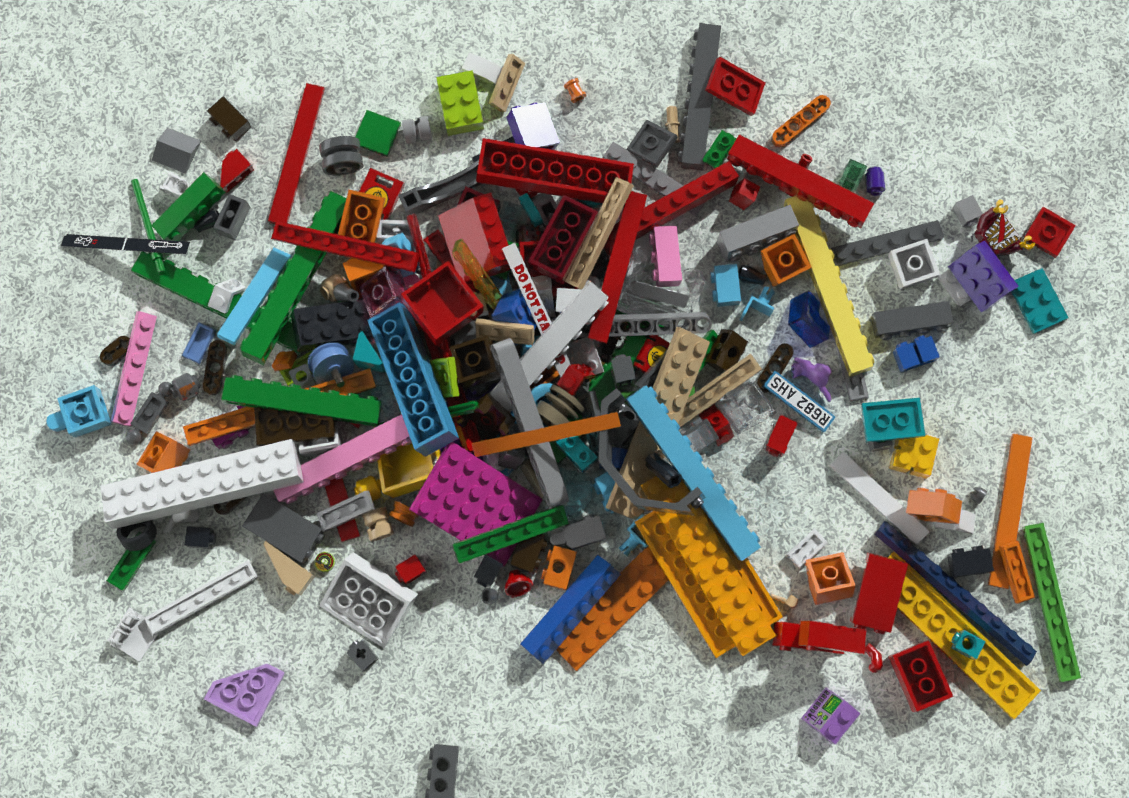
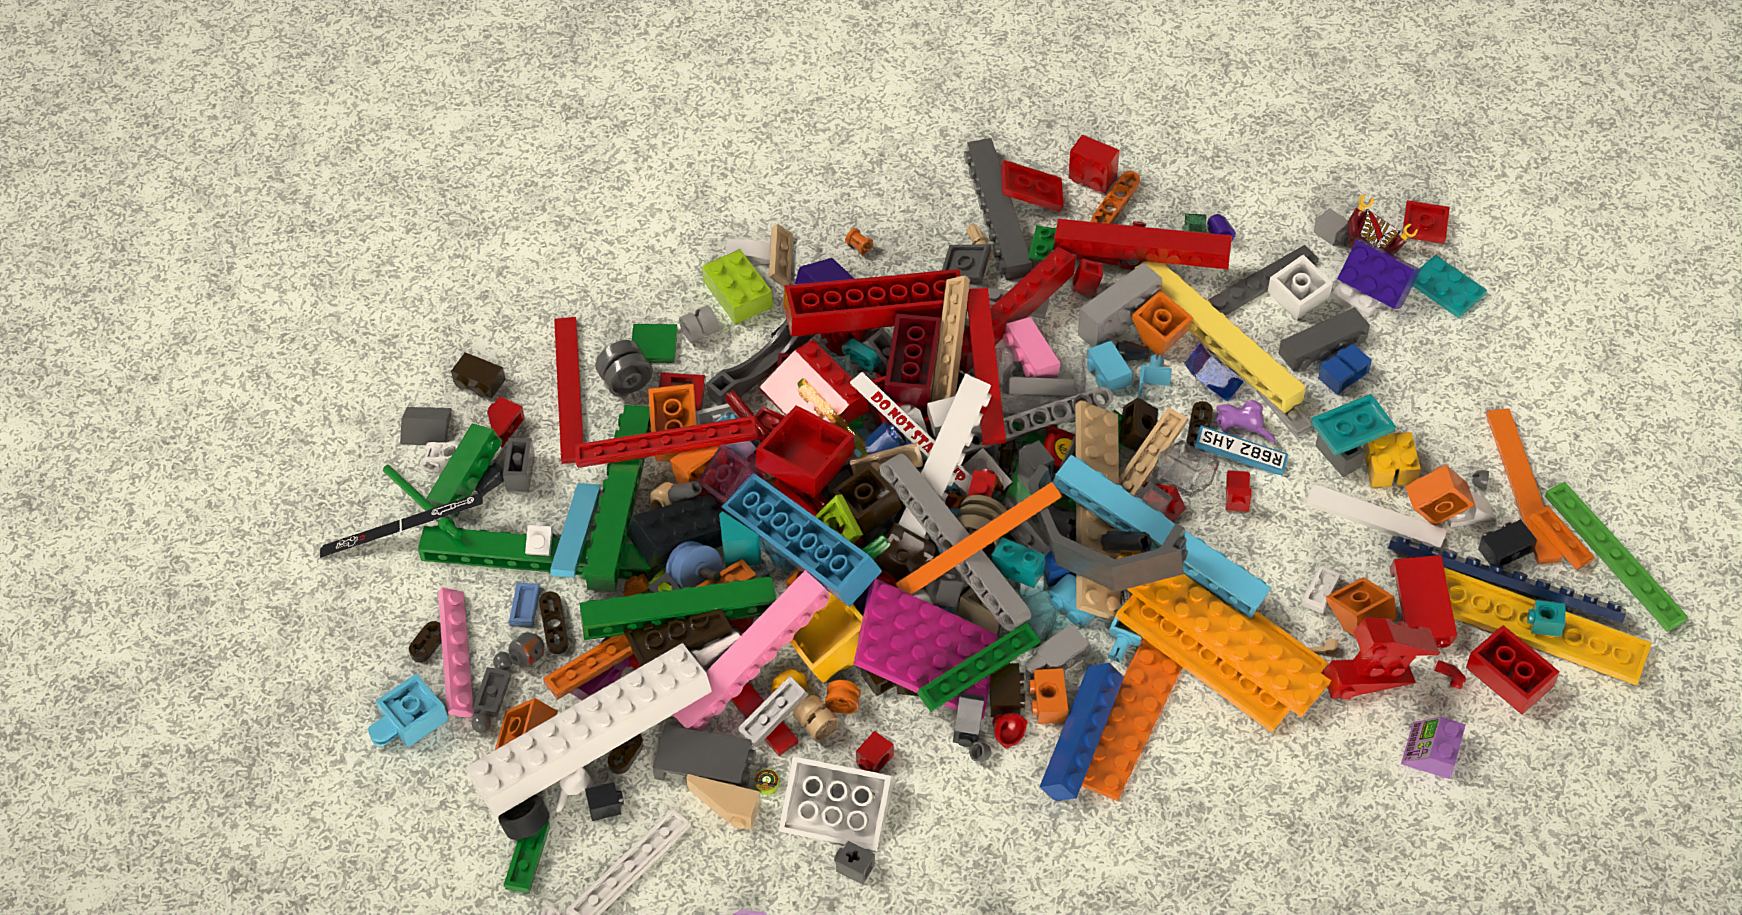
camera: 20 degrees left, 25 degrees down
(794, 82) = (1093, 164): none -> red brick

